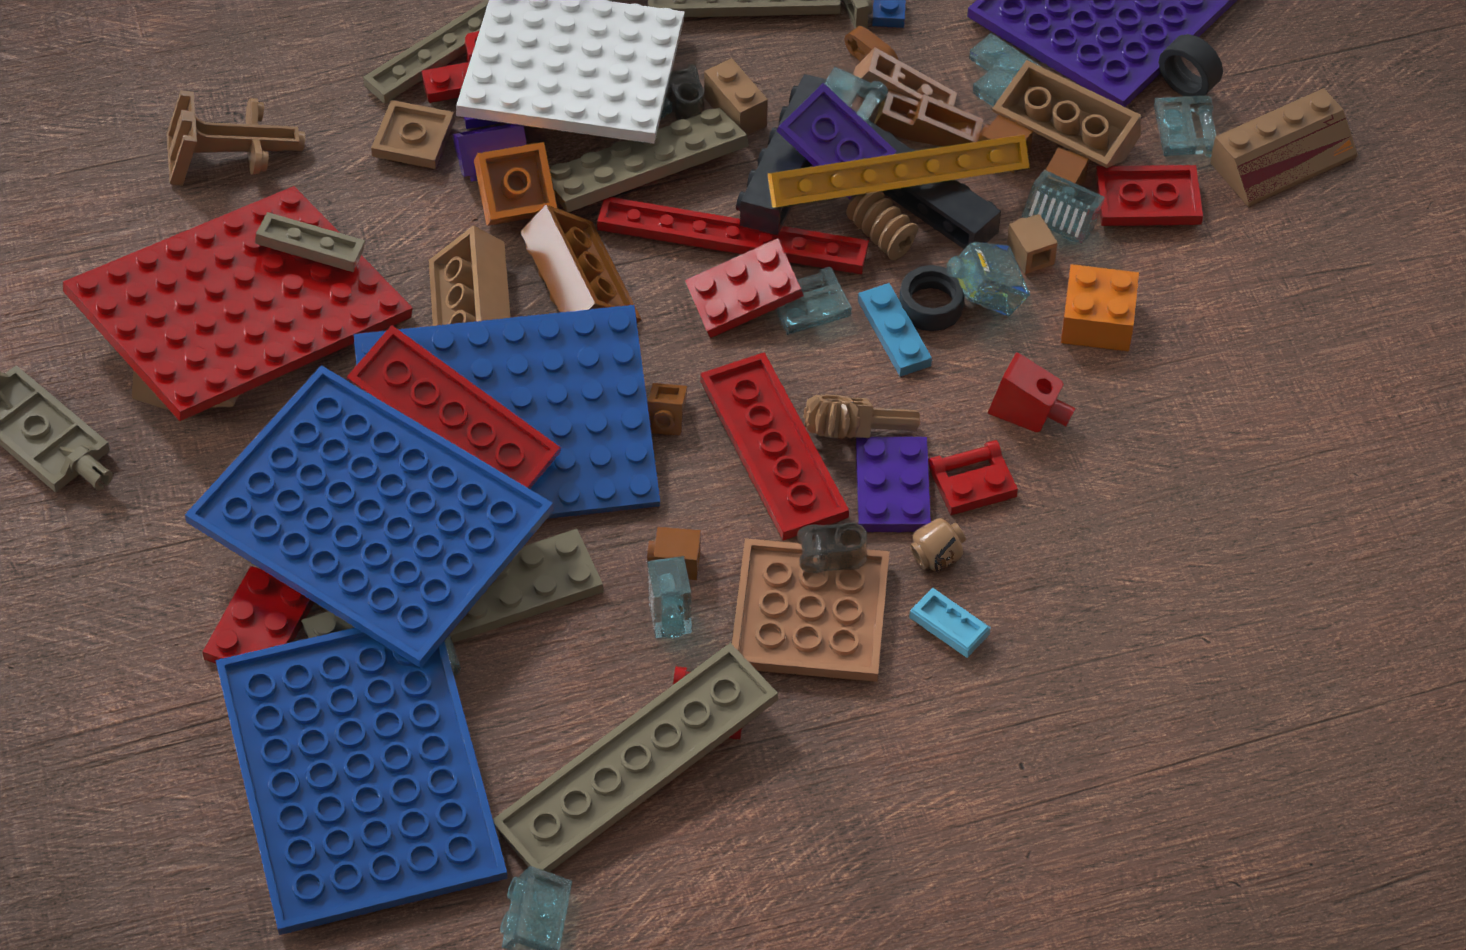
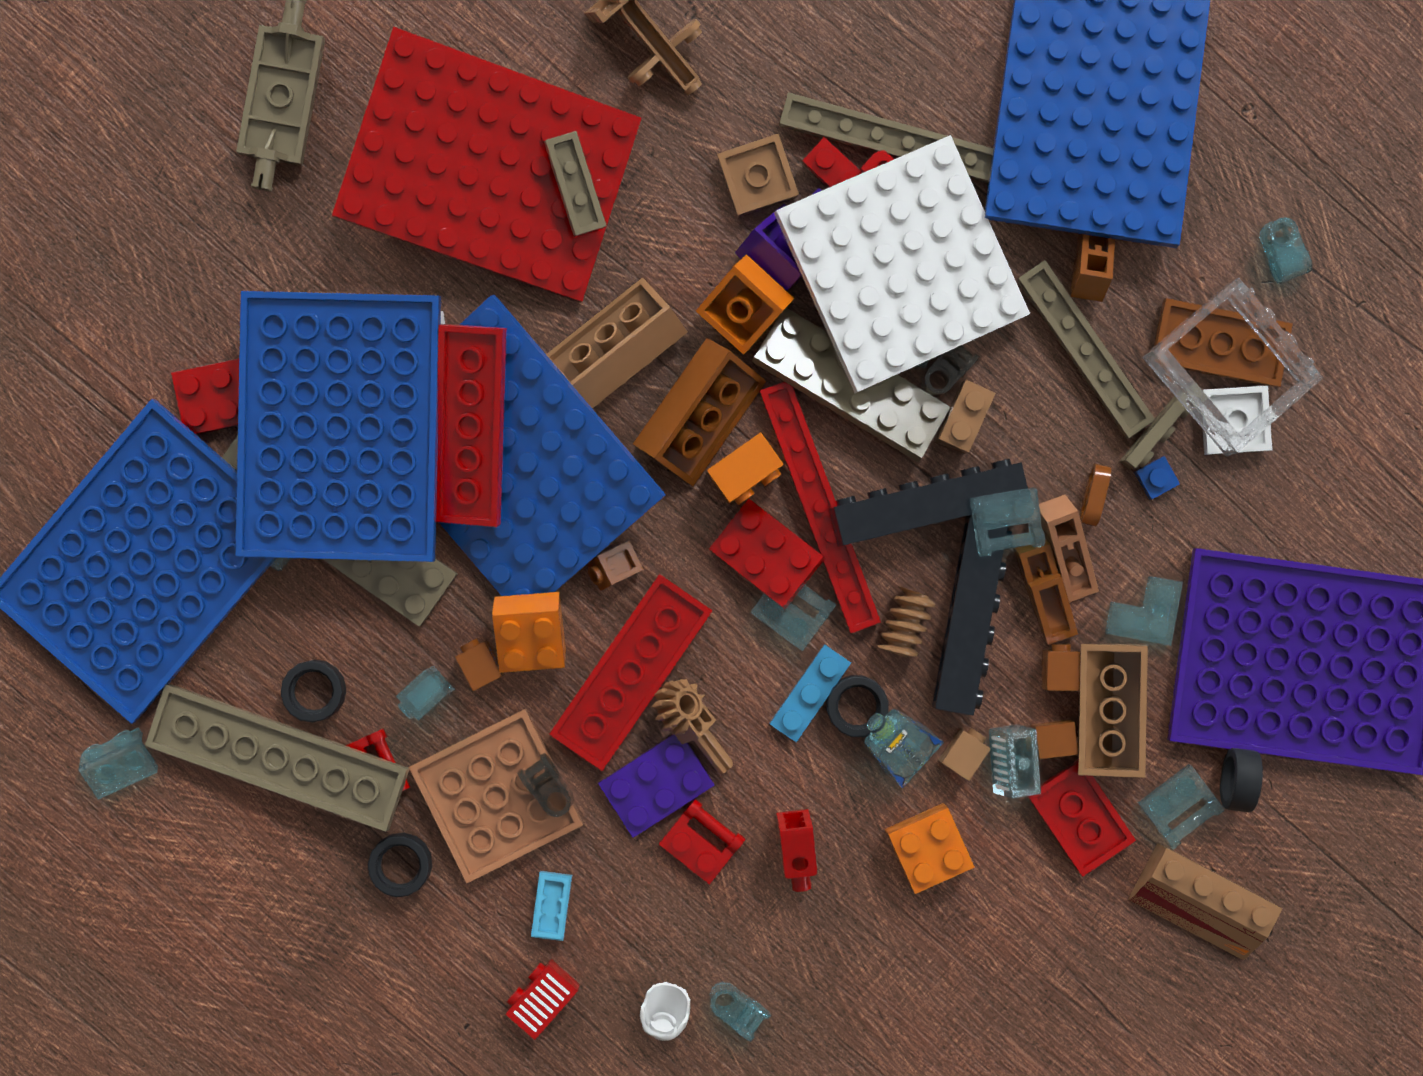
camera: 60 degrees right, 35 degrees up
(595, 678) = (288, 690): none -> black tyre
(658, 257) = (746, 468): none -> orange brick
(676, 485) = (529, 632): none -> orange brick
(819, 698) = (375, 868): none -> black tyre
(831, 132) = (947, 545): dark purple plate -> none
(898, 170) = (949, 616): light orange plate -> none
(937, 544) = (614, 856): medium nougat head -> none
(1035, 675) = (542, 998): none -> red brick
(1117, 580) = (665, 1011): none -> white hair
(1153, 528) = (742, 1014): none -> clear light blue piece

